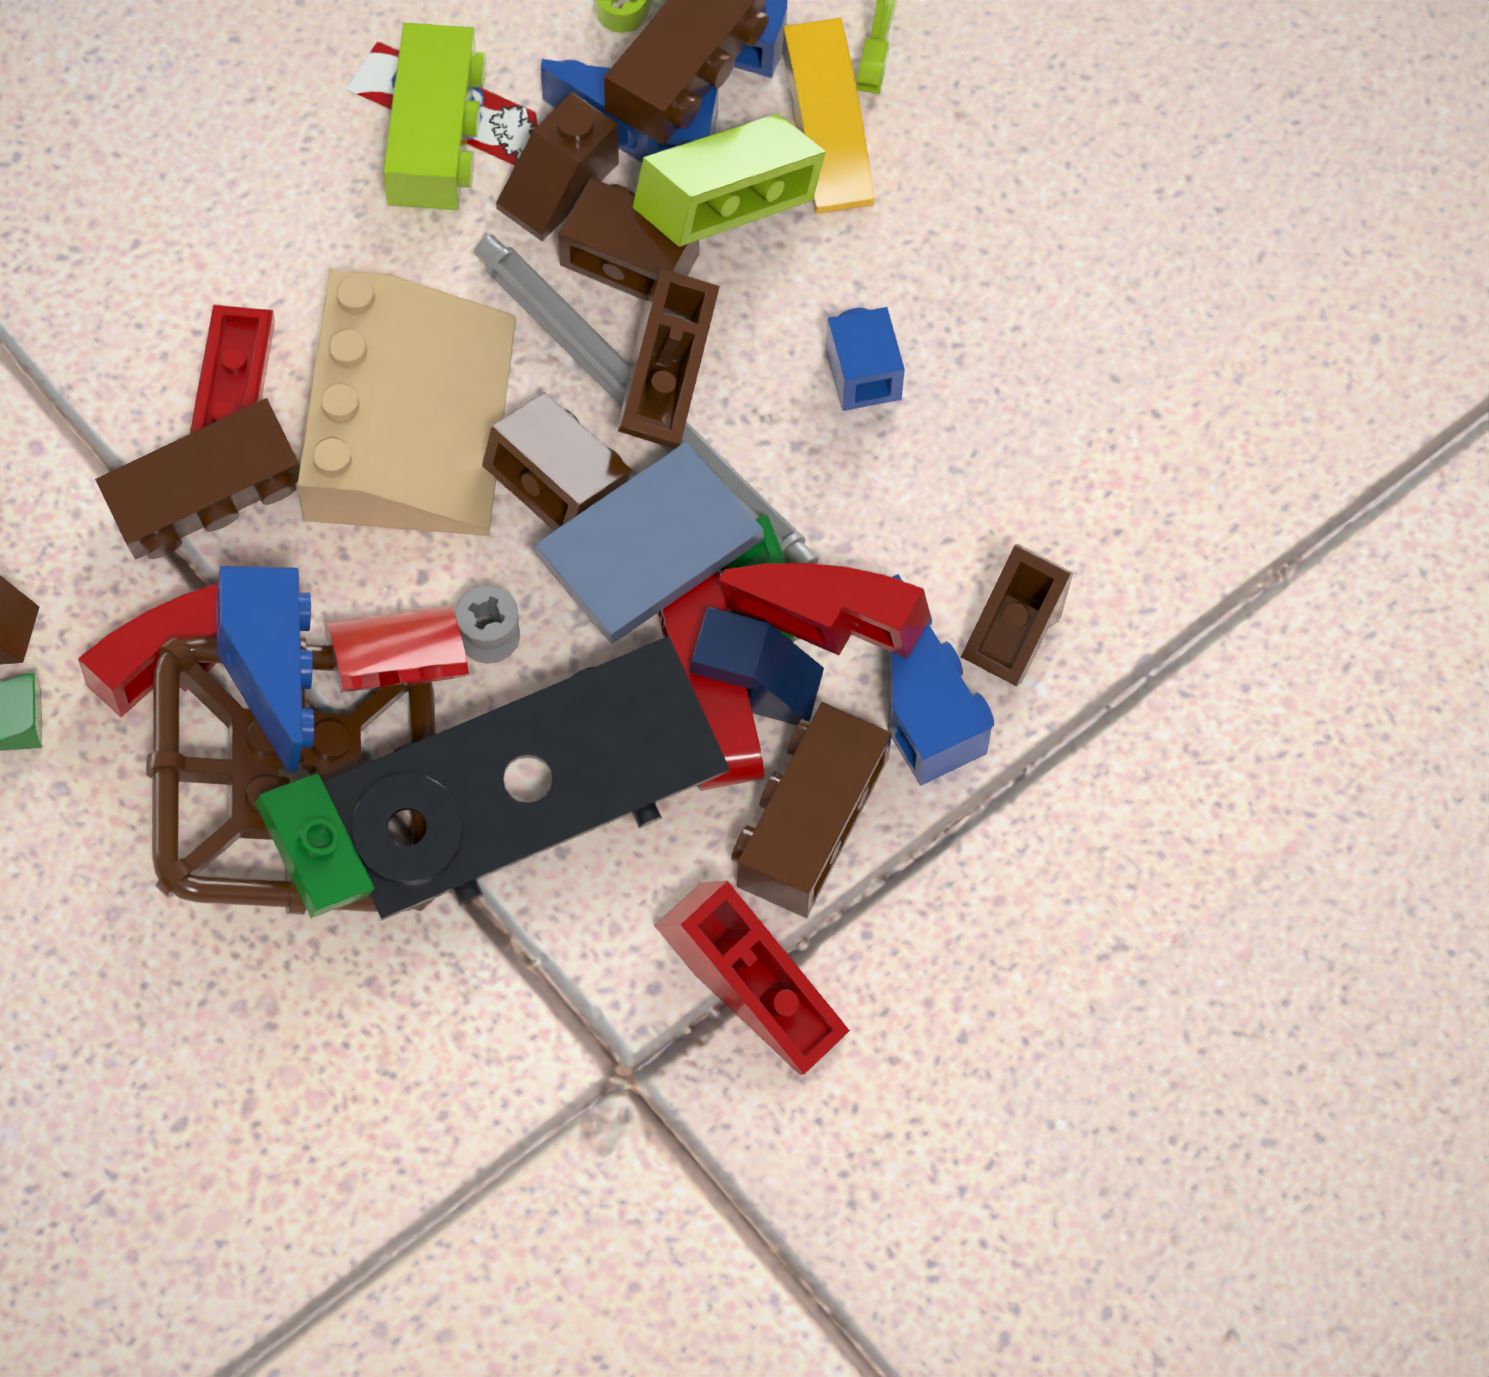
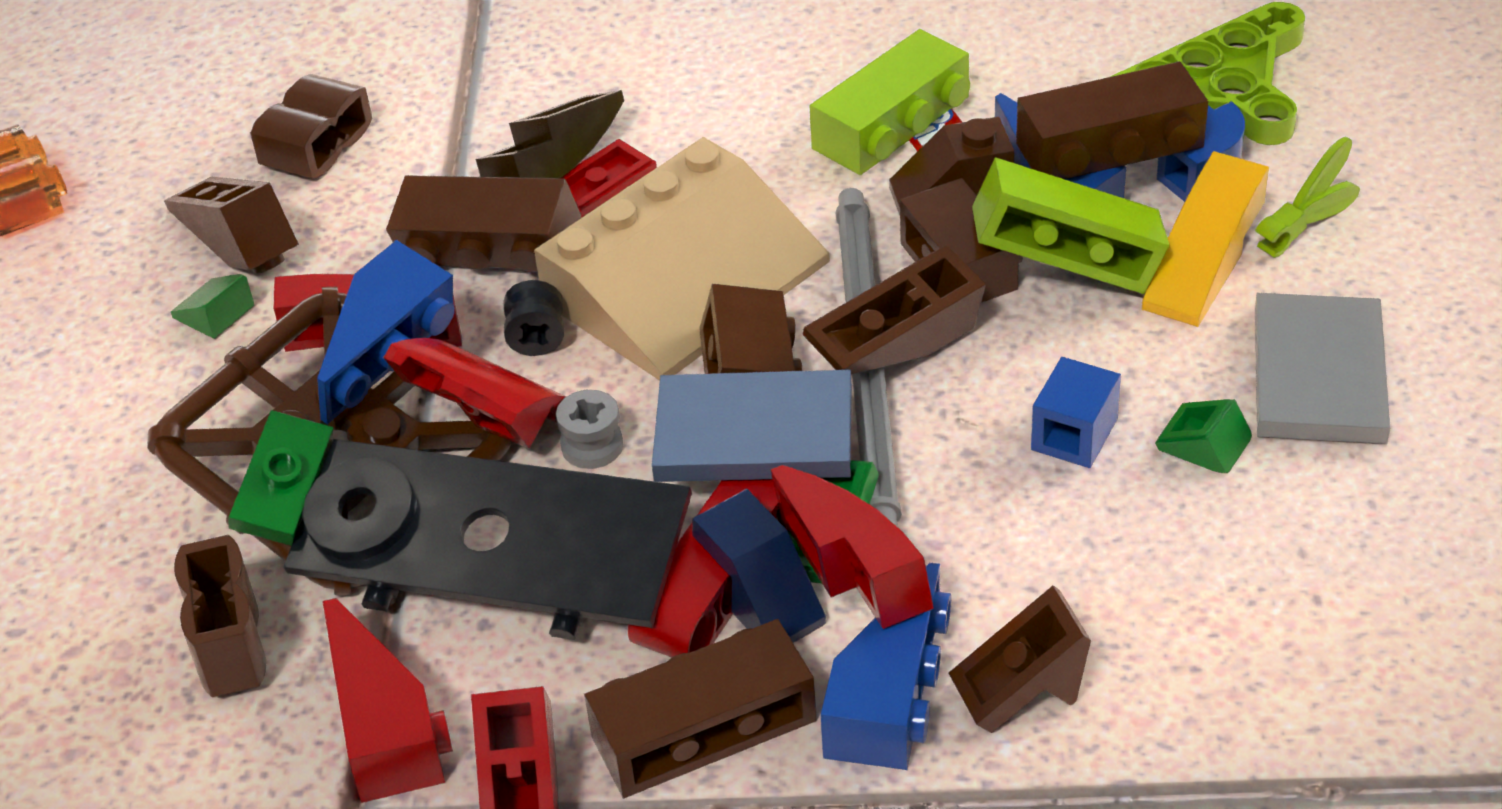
camera: 45 degrees right, 20 degrees down
(166, 353) = (554, 139): none -> dark brown slope
(334, 547) = (533, 318): none -> black wheel
(366, 990) = (220, 616): none -> reddish brown brick
(572, 976) = (384, 712): none -> red slope
(967, 313) = (1207, 434): none -> green slope
(1004, 191) = (1320, 368): none -> light grey tile

